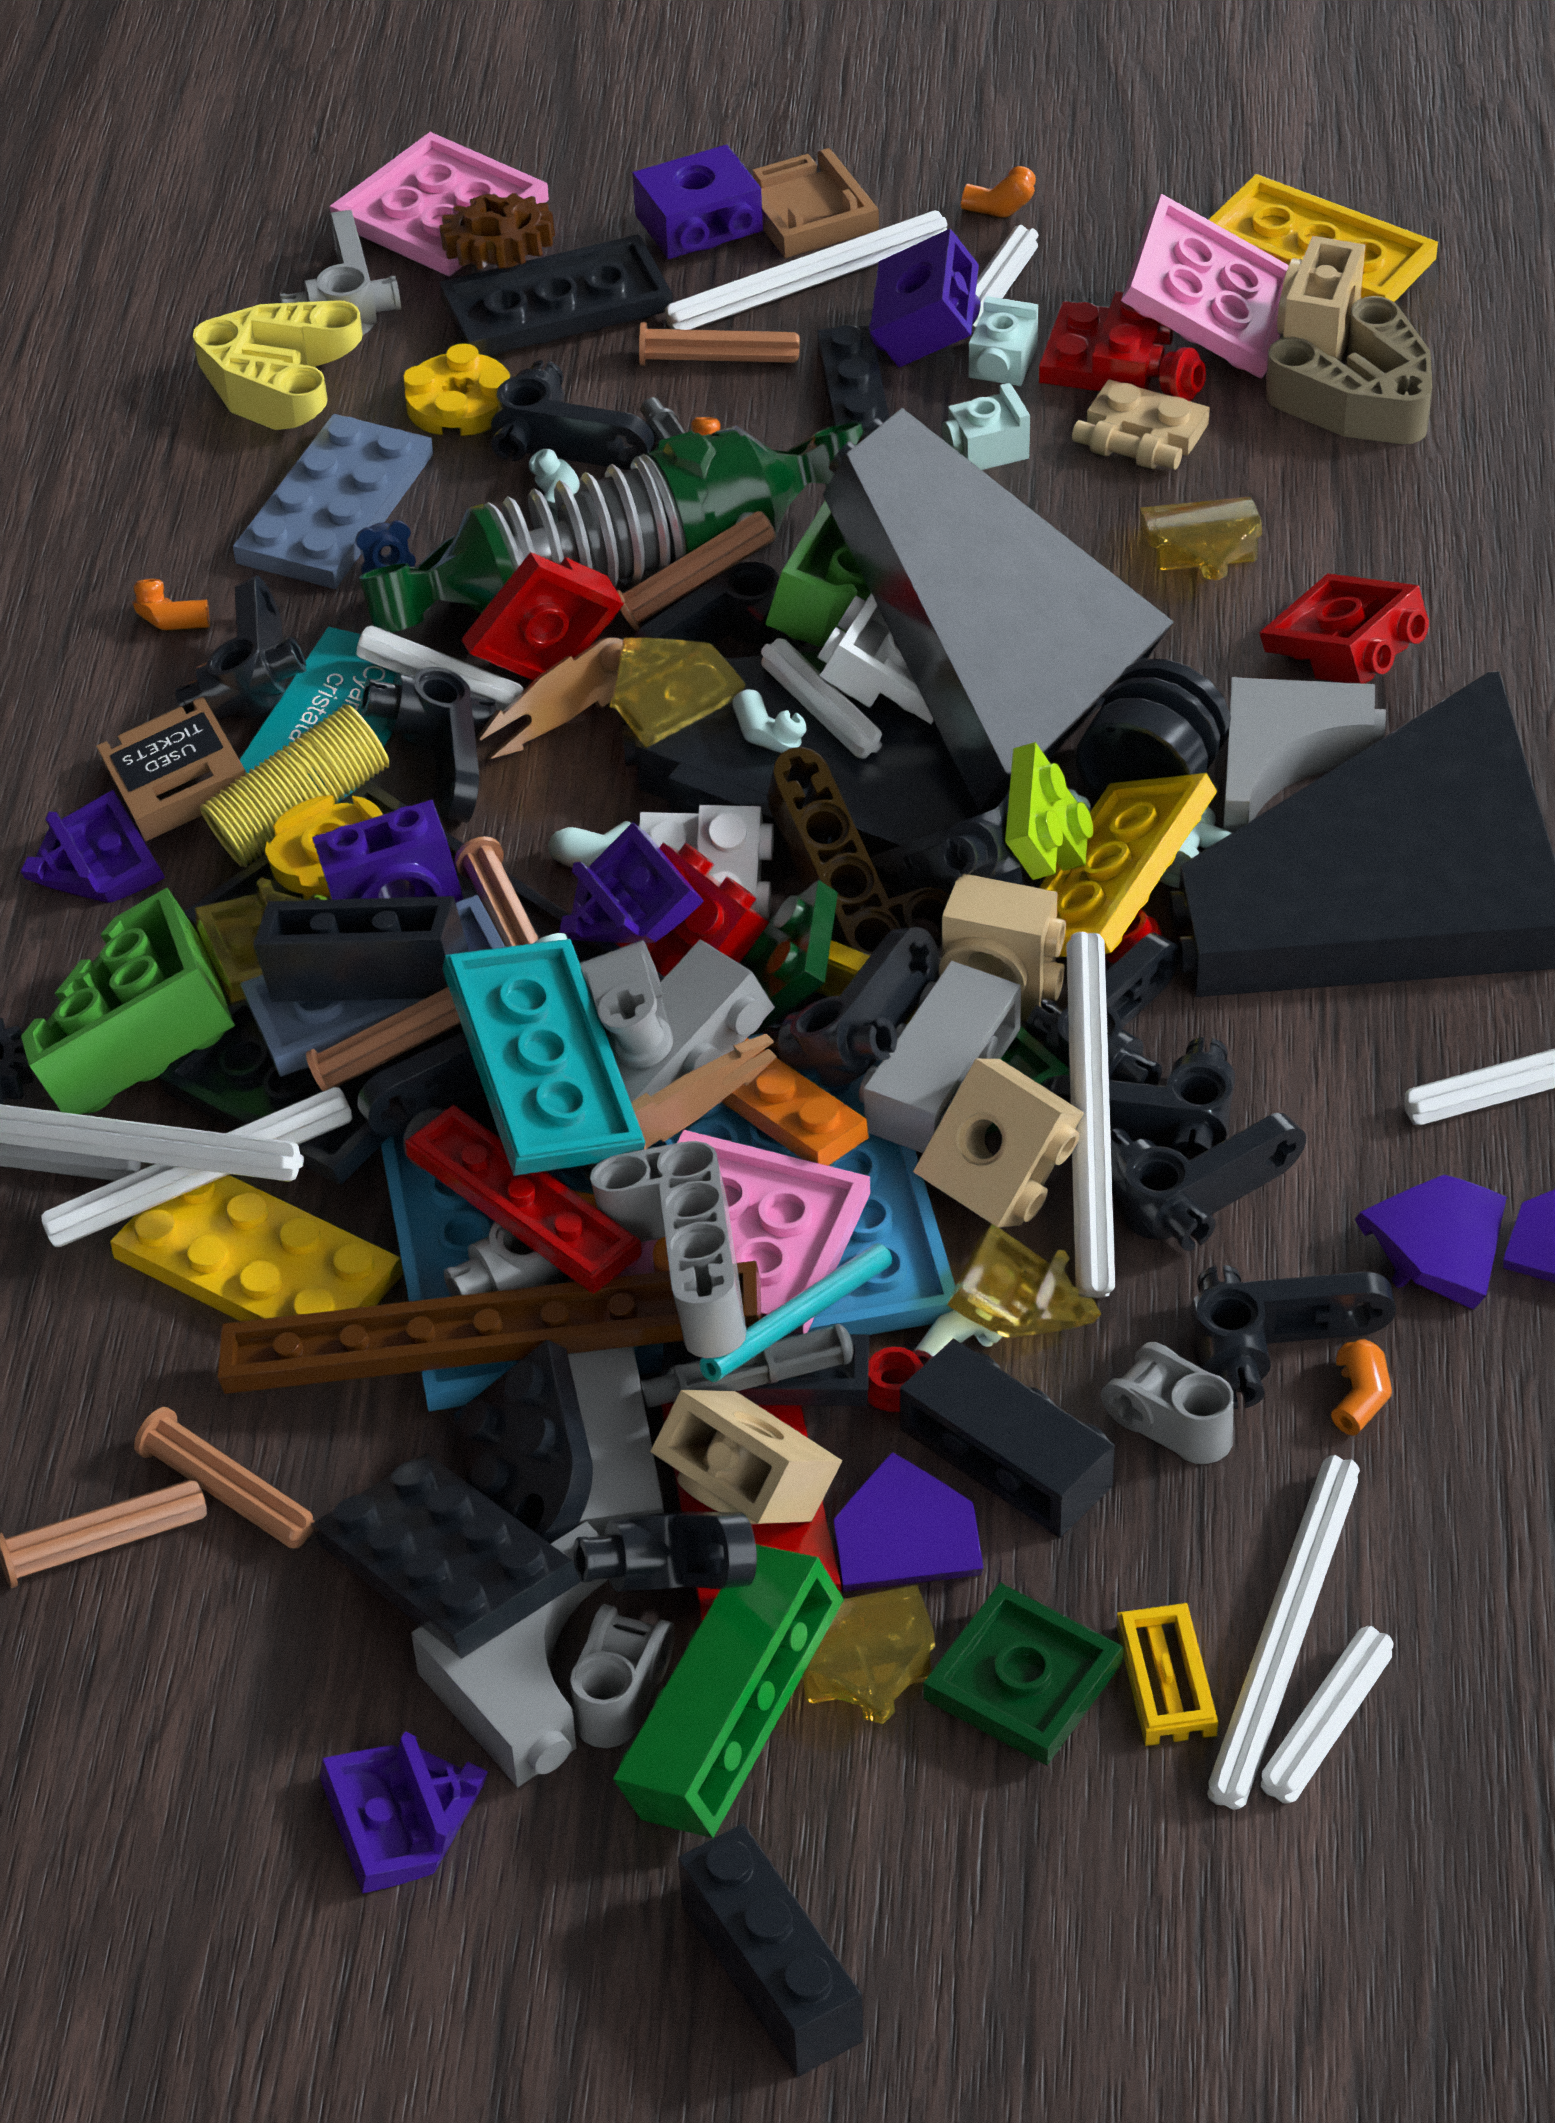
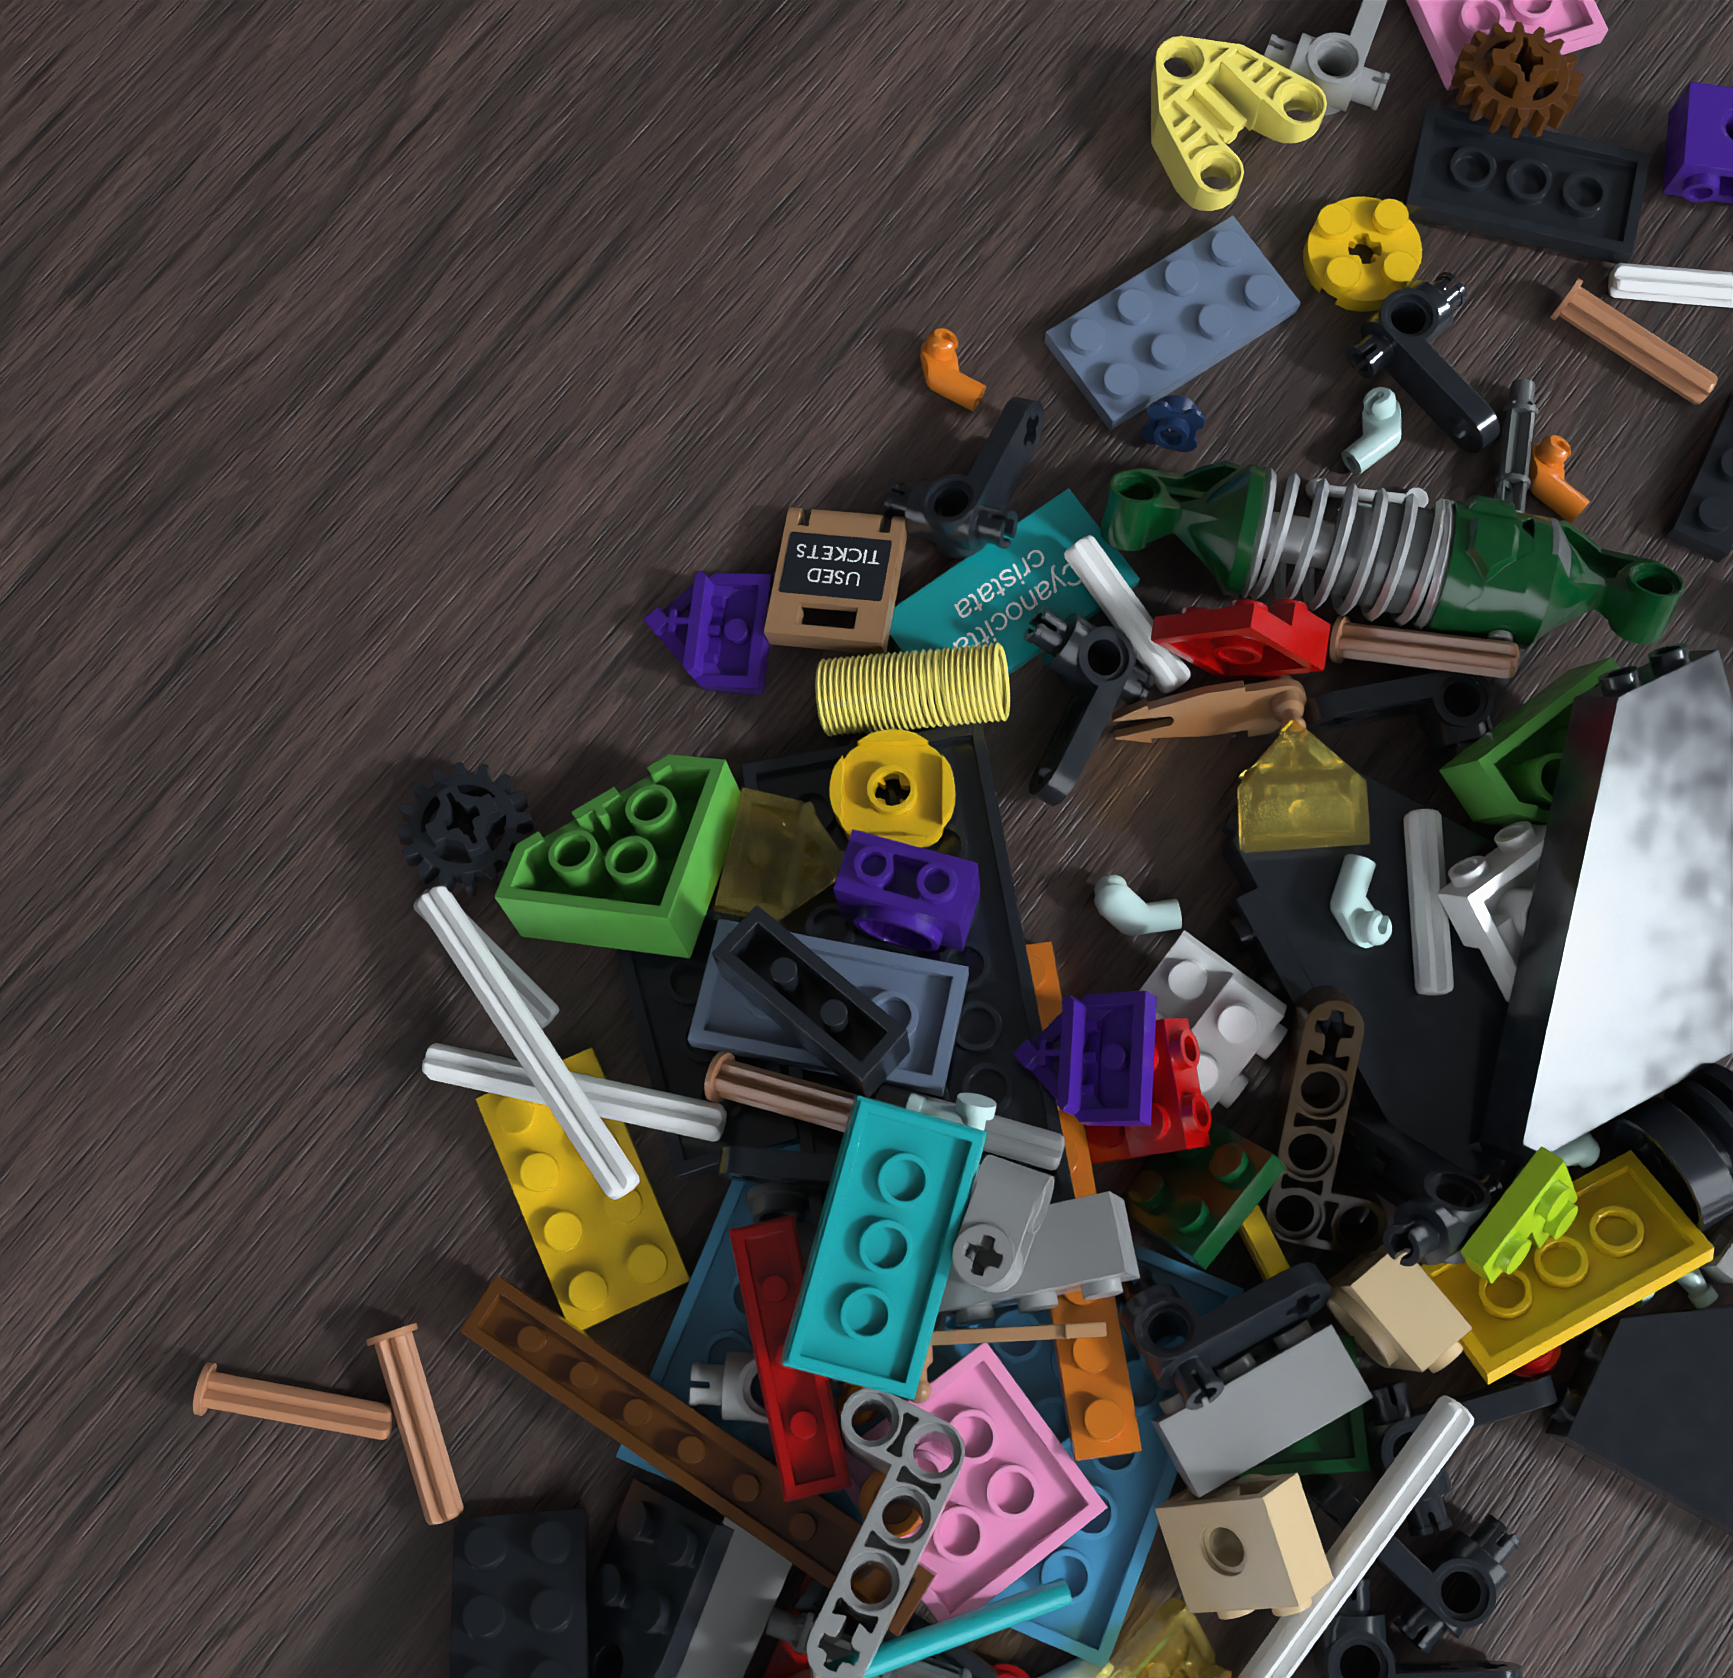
camera: 30 degrees right, 30 degrees up
(482, 863) = (983, 996): nougat axle -> none

